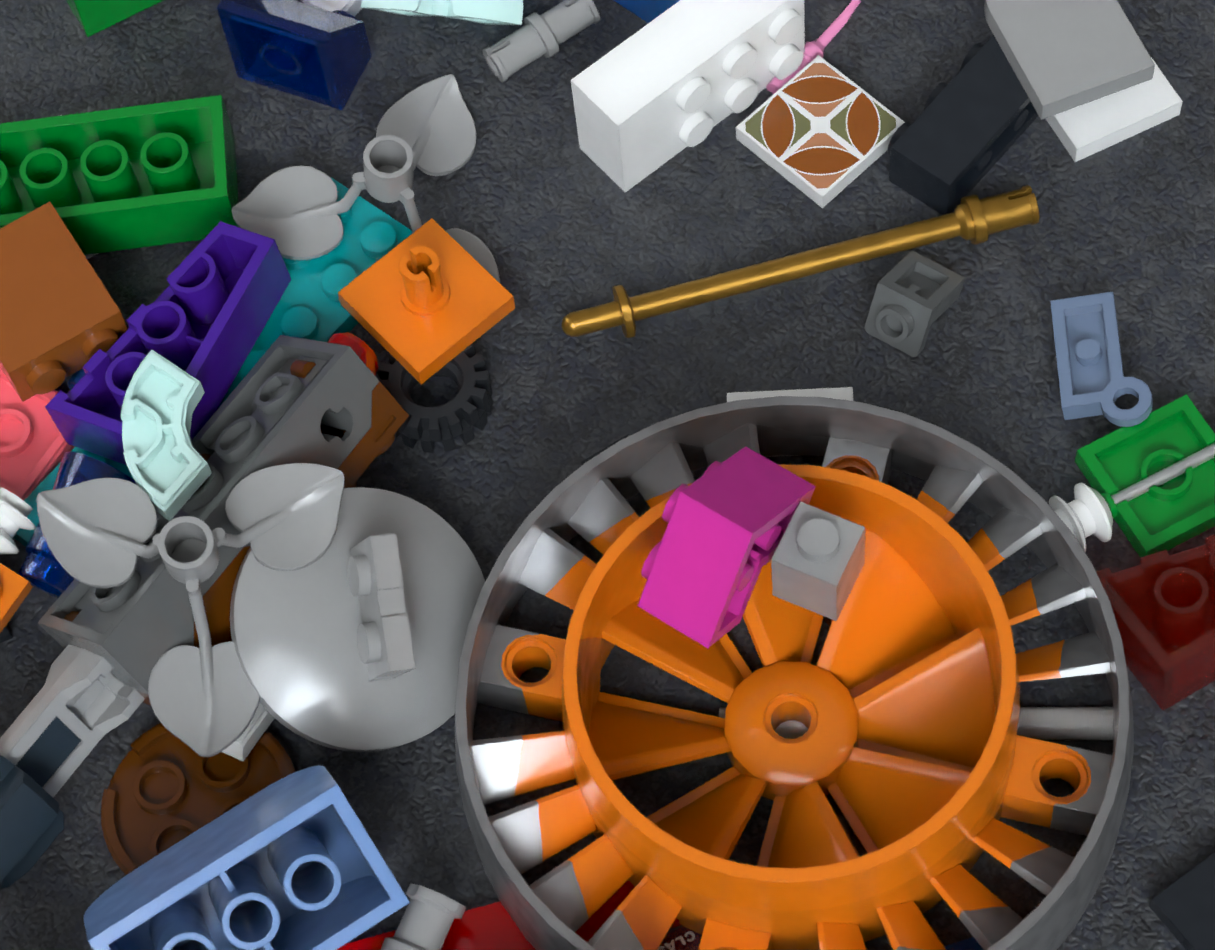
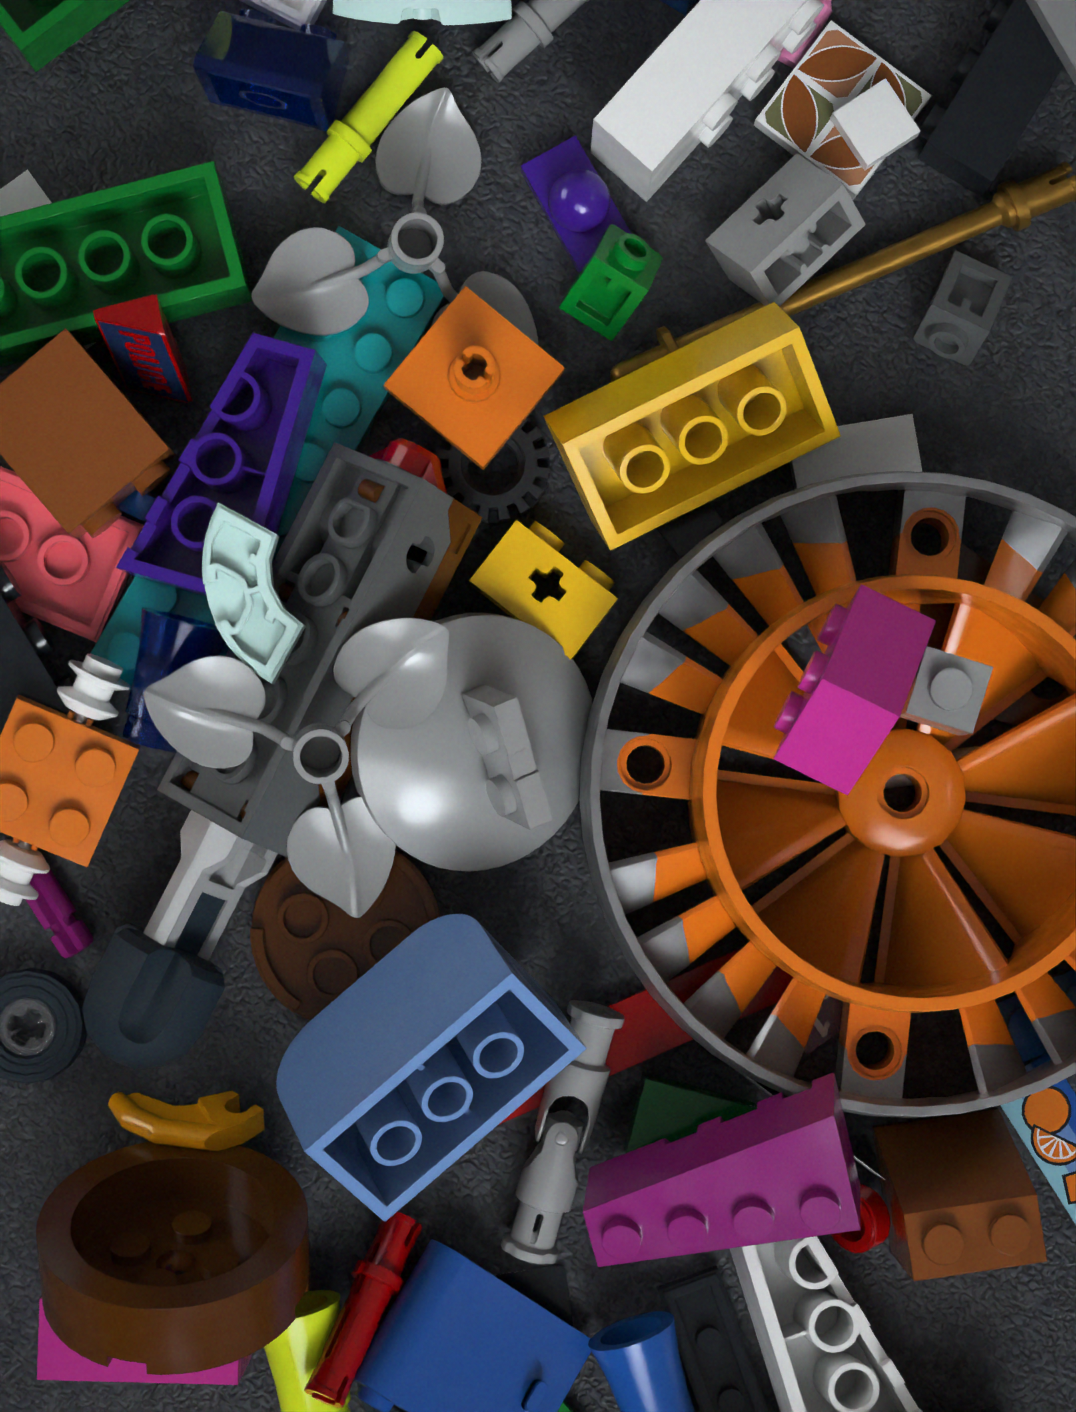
camera: 20 degrees left, 25 degrees up
(123, 245) = (144, 348): none -> slope
(359, 108) = (353, 135): none -> neon yellow pin
(462, 489) = (534, 550): none -> yellow brick
(559, 187) = (572, 198): none -> dark purple tile
(574, 243) = (612, 282): none -> green bracket
(629, 360) = (693, 425): none -> yellow brick
(747, 213) = (785, 231): none -> light grey brick
(846, 136) = (875, 124): none -> white tile

